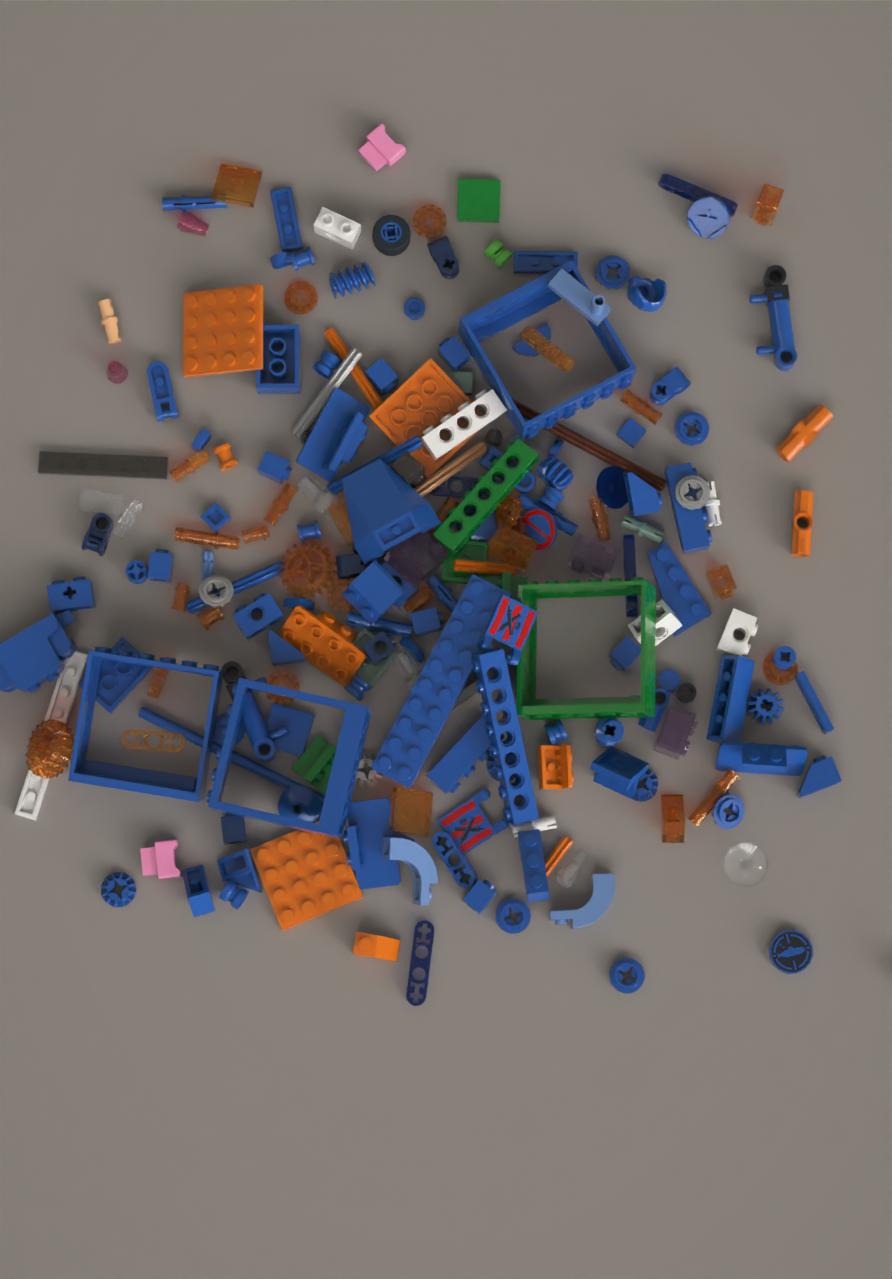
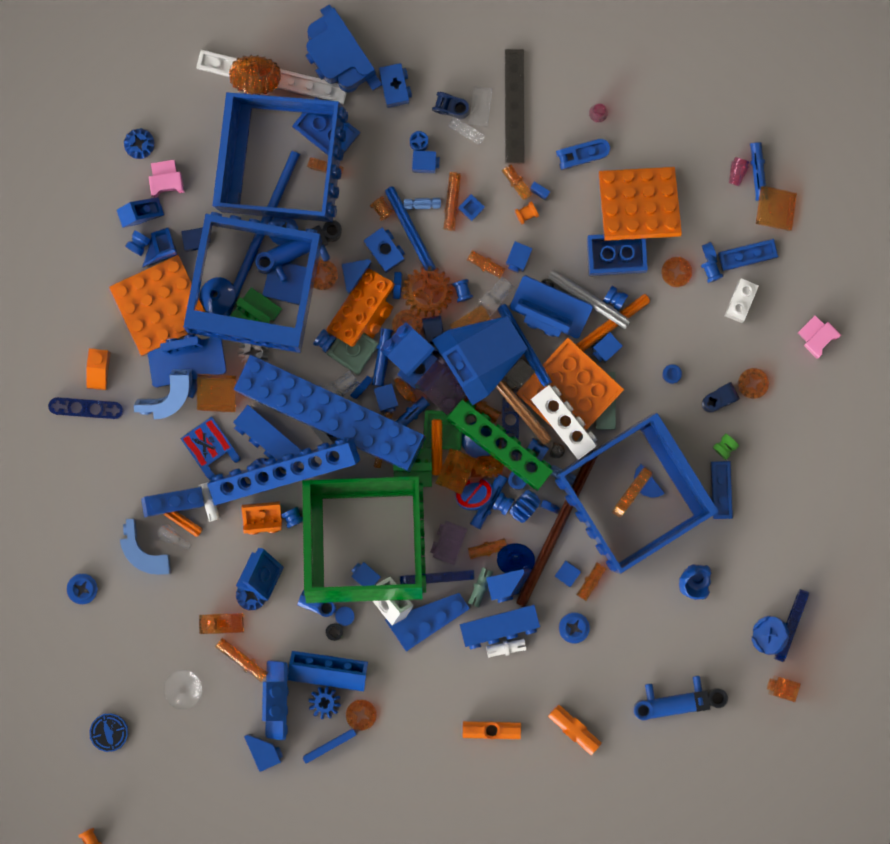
camera: 85 degrees right, 5 degrees up
(109, 321) = (645, 103): light nougat pin -> none
(138, 733) = (258, 149): clear orange beam -> none
(181, 597) = (398, 181): clear orange pin -> none
(220, 583) = (411, 214): light grey gear -> none
(257, 533) = (458, 244): clear orange pin -> none
(351, 279) = (694, 315): blue piece -> none
(374, 656) = (359, 349): dark blue brick -> none
(391, 242) = (732, 352): black wheel -> none
(446, 859) = (177, 426): blue beam -> none
(454, 353) = (631, 410): blue brick -> none
(478, 200) = (775, 427): green tile -> none
(480, 896) = (145, 457): blue brick -> none
(509, 625) = (379, 469): blue flag -> none
(517, 906) = (121, 483): blue gear -> none
(579, 297) = (683, 519): medium blue piece -> none
(609, 723) = (285, 563): blue piece -> none
(612, 263) = (724, 551): blue gear -> none
(671, 384) = (614, 608): blue piece -> none
(675, 731) = (295, 622): clear purple brick -> none
(694, 482) = (520, 632): light grey gear -> none
(721, 573) = (443, 659): clear orange brick -> none
(730, 820) = (222, 674): blue gear -> none
(737, 621) = (399, 673): white brick -> none
(781, 661) = (367, 715): blue wheel -> none

